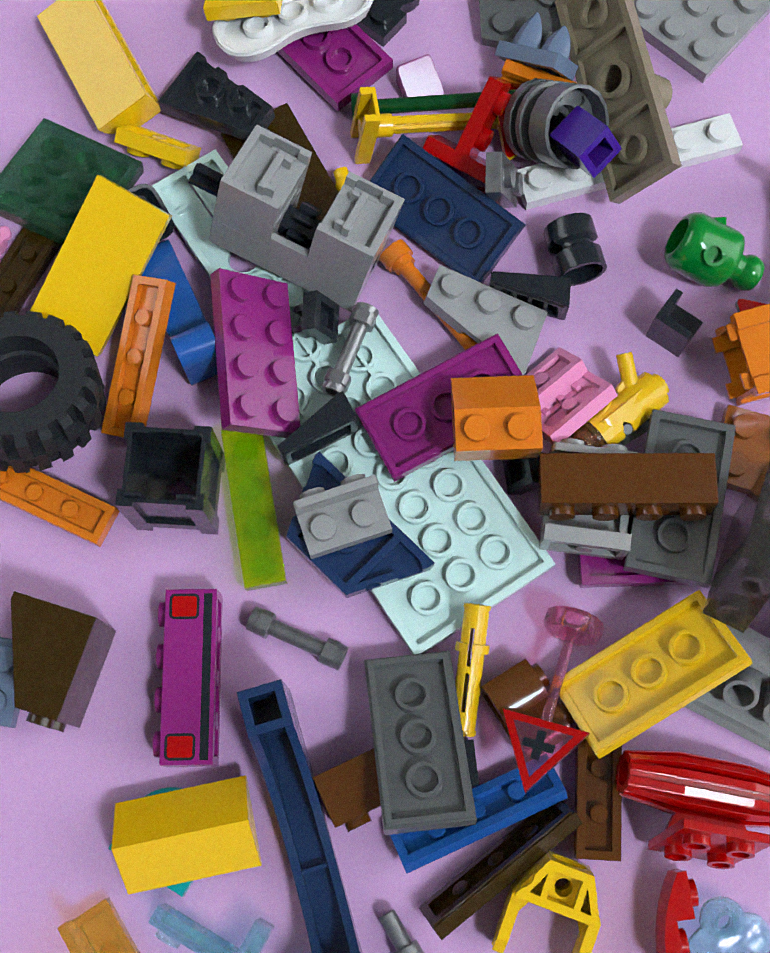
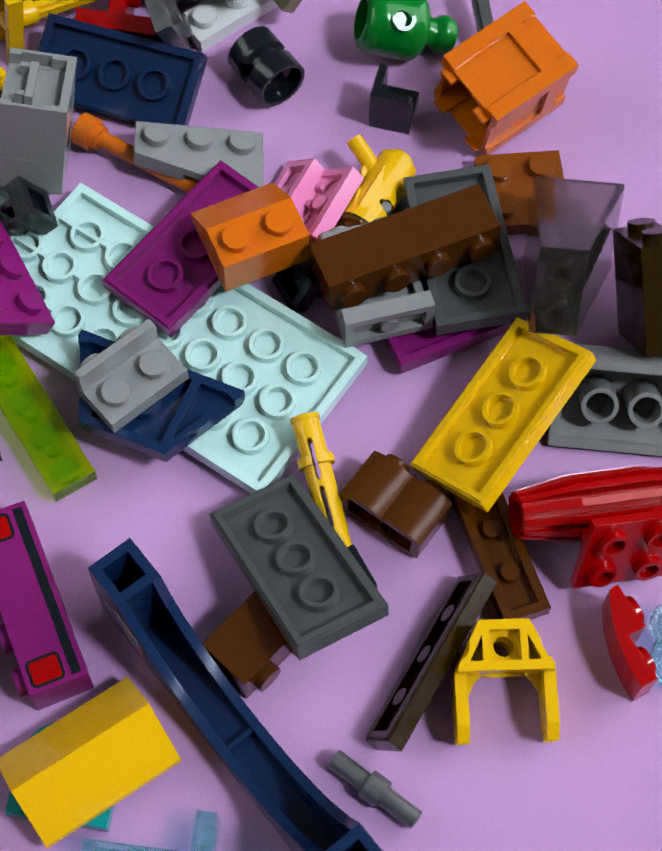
camera: 25 degrees left, 10 degrees down
(264, 623) = (86, 525): flat silver bar -> none
(322, 429) = (77, 307): black slope -> none
(361, 321) = (73, 257): flat silver bar -> none
(496, 807) = (410, 599): blue plate -> none
(540, 742) = (422, 516): clear pink piece -> none
(541, 291) = (246, 113): black slope -> none

